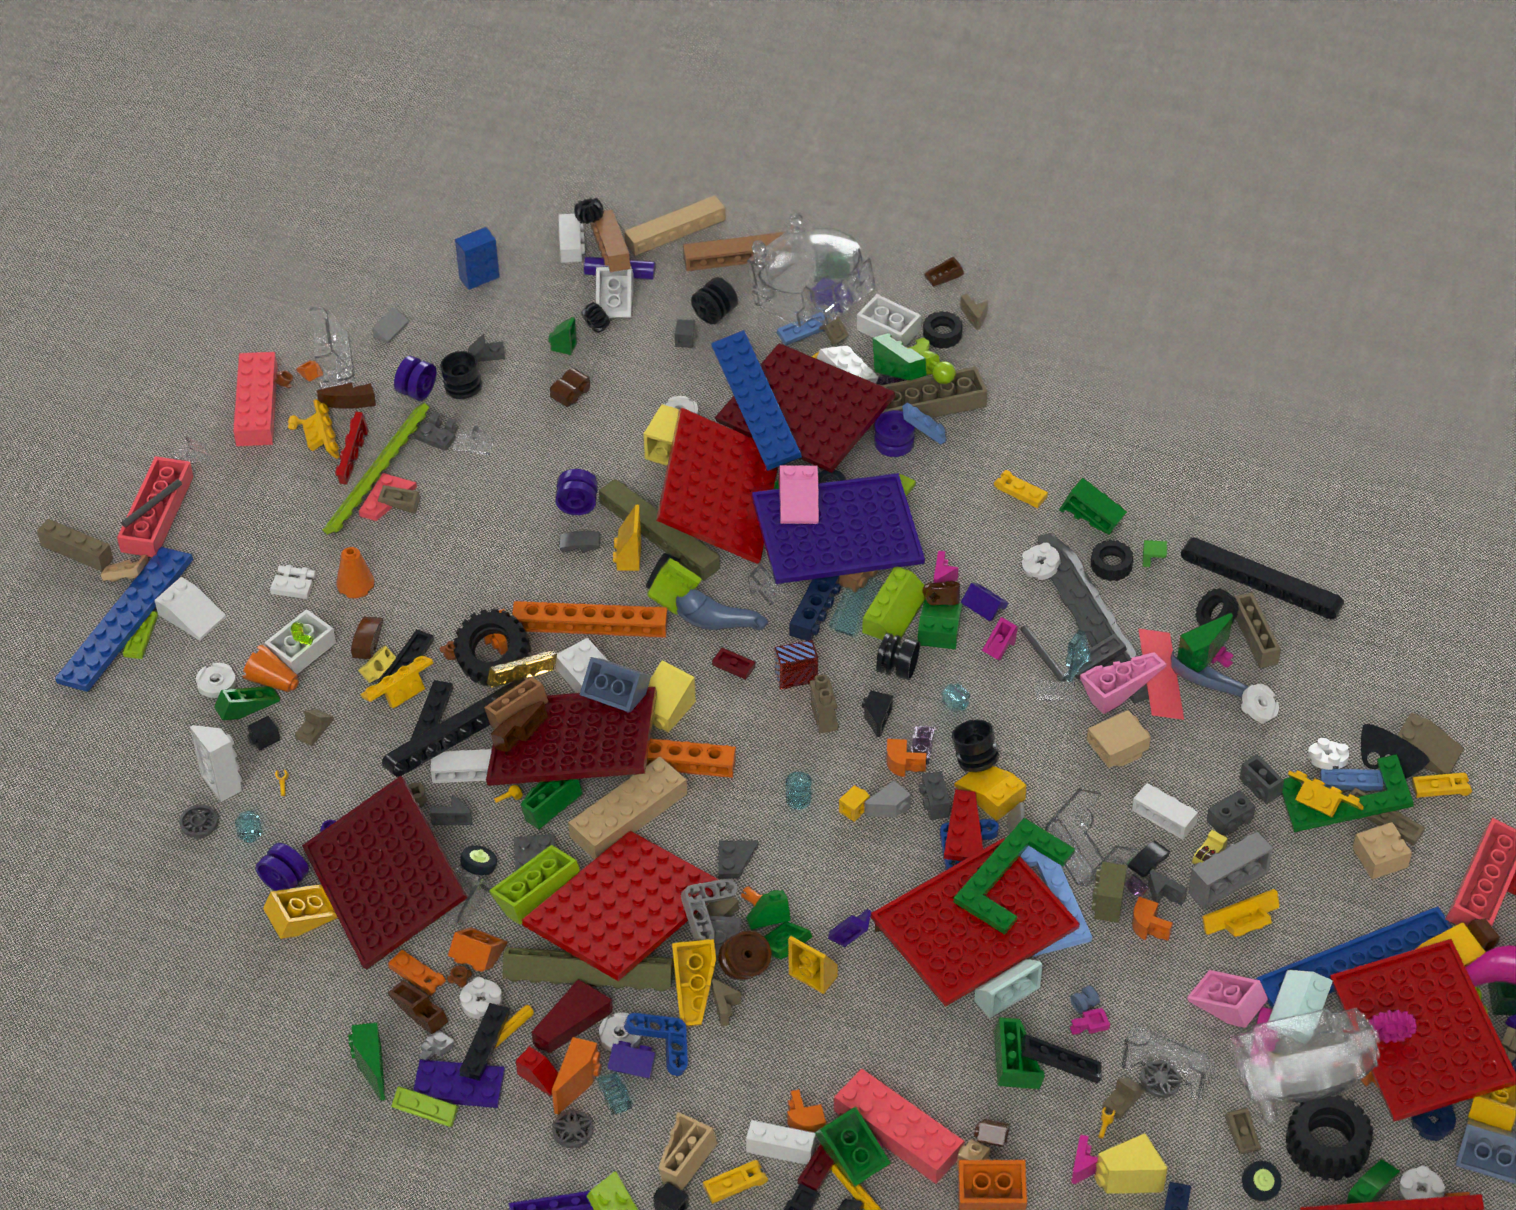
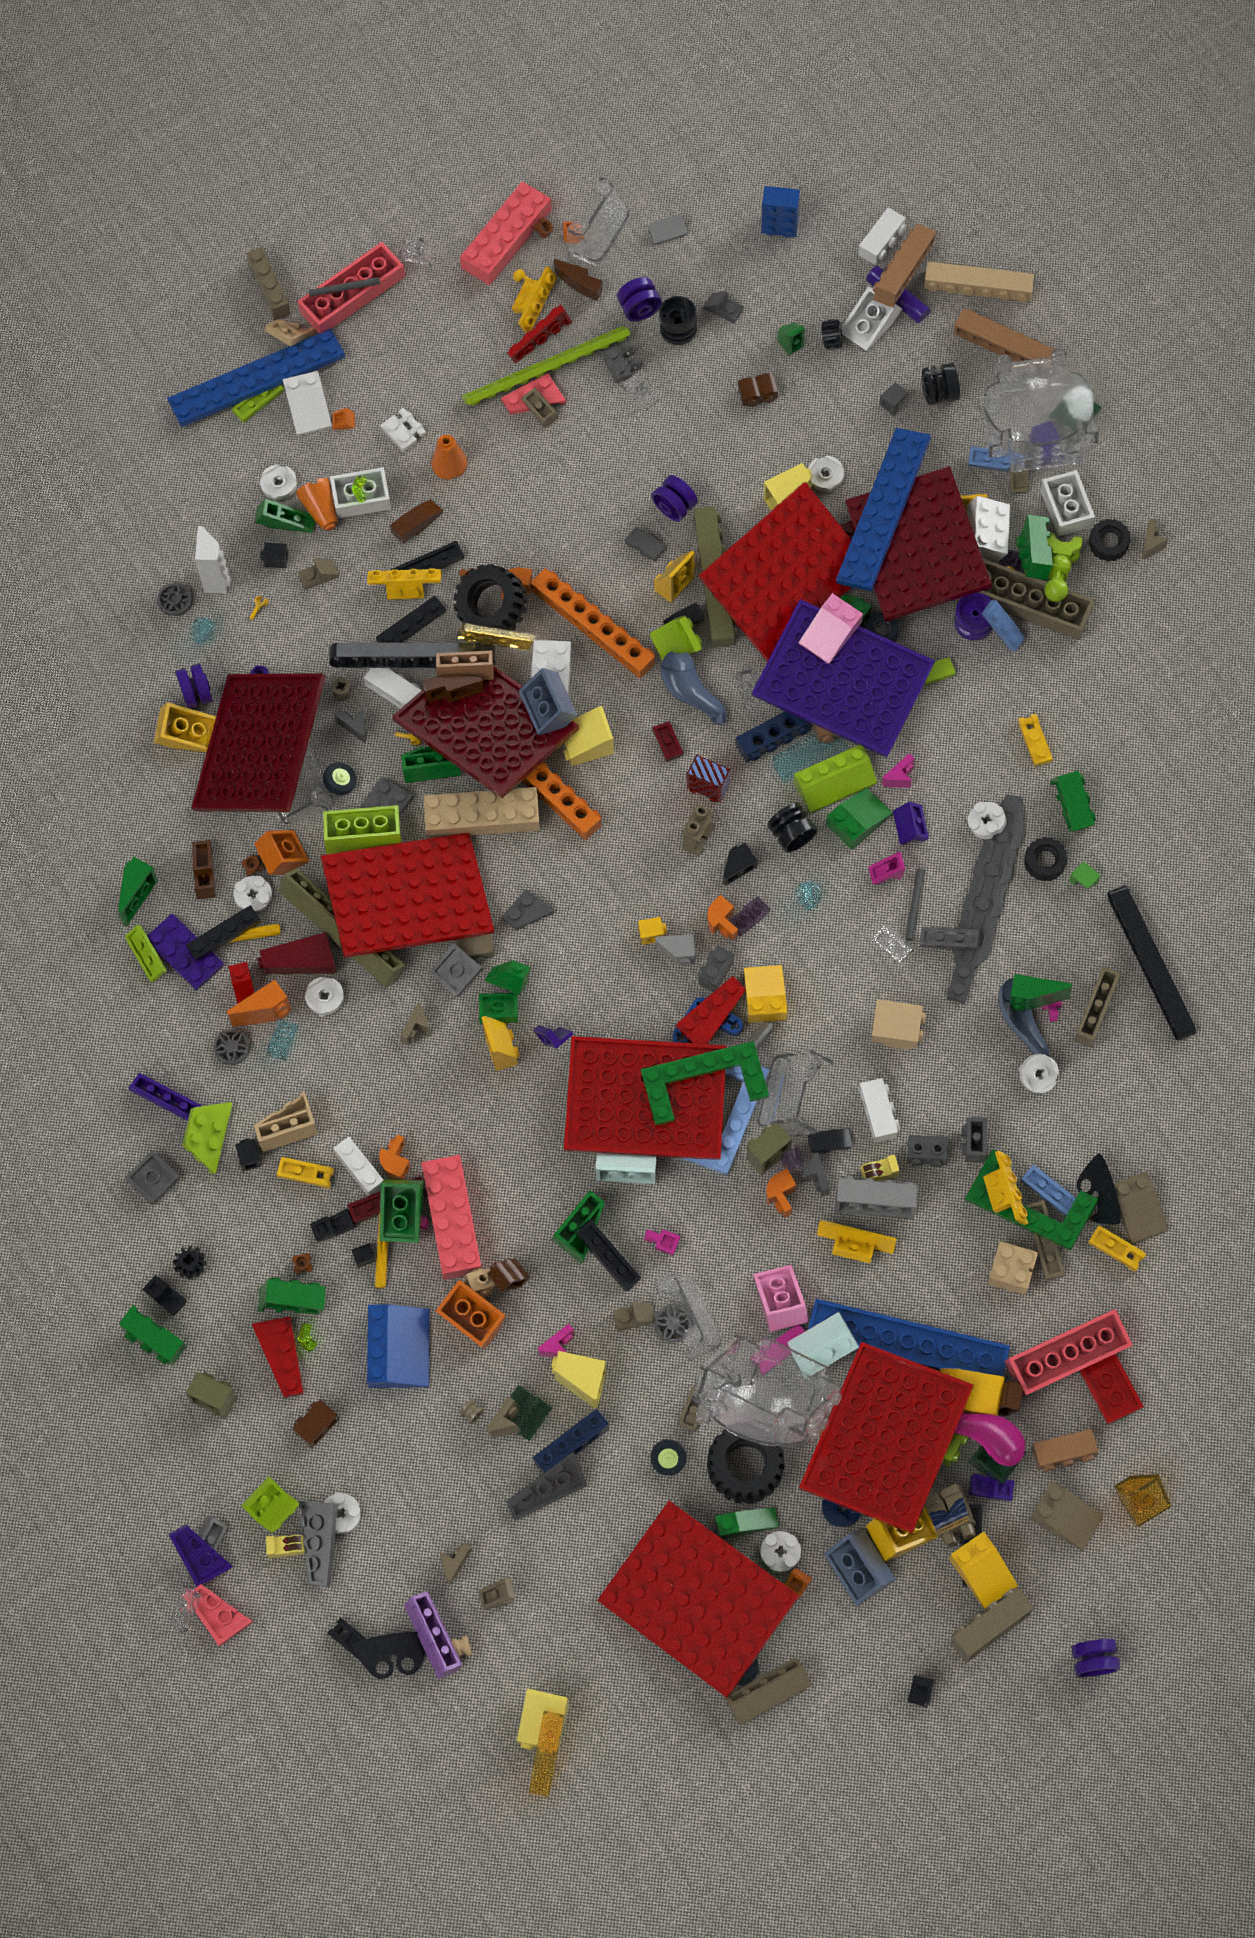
camera: 40 degrees right, 20 degrees up
(231, 604) = (343, 419): none -> orange slope
(377, 664) = (403, 552): light yellow leg -> none
(416, 972) = (225, 839): orange plate -> none
(436, 1044) = (191, 909): light grey plate -> none
(588, 210) = (910, 222): black gear -> none
(632, 1060) = (310, 1025): dark purple brick -> none
(670, 1036) = (356, 1024): blue beam -> none
(693, 972) = (410, 987): yellow wedge -> none
(699, 904) = (455, 935): light grey beam -> none
(744, 955) = (456, 990): reddish brown wheel -> none
(751, 895) = (510, 953): orange pin -> none
(798, 790) = (617, 889): clear light blue wheel -> none
(942, 593) = (881, 795): reddish brown piece -> none
(956, 272) = (1171, 488): reddish brown slope -> none
(975, 745) = (779, 950): black wheel -> none
(1077, 655) = (927, 928): clear light blue wing -> none
(1085, 999) = (669, 1219): sand blue wheel -> none
(1106, 1119) = (604, 1325): yellow hand -> none
(1116, 683) = (941, 973): bright pink wedge -> none
(1163, 687) = (982, 996): coral sticker -> none
(1210, 601) = (1073, 961): black tyre -> none
(1328, 754) = (1058, 1150): white plate -> none
(1394, 1025) = (854, 1420): dark pink gear -> none

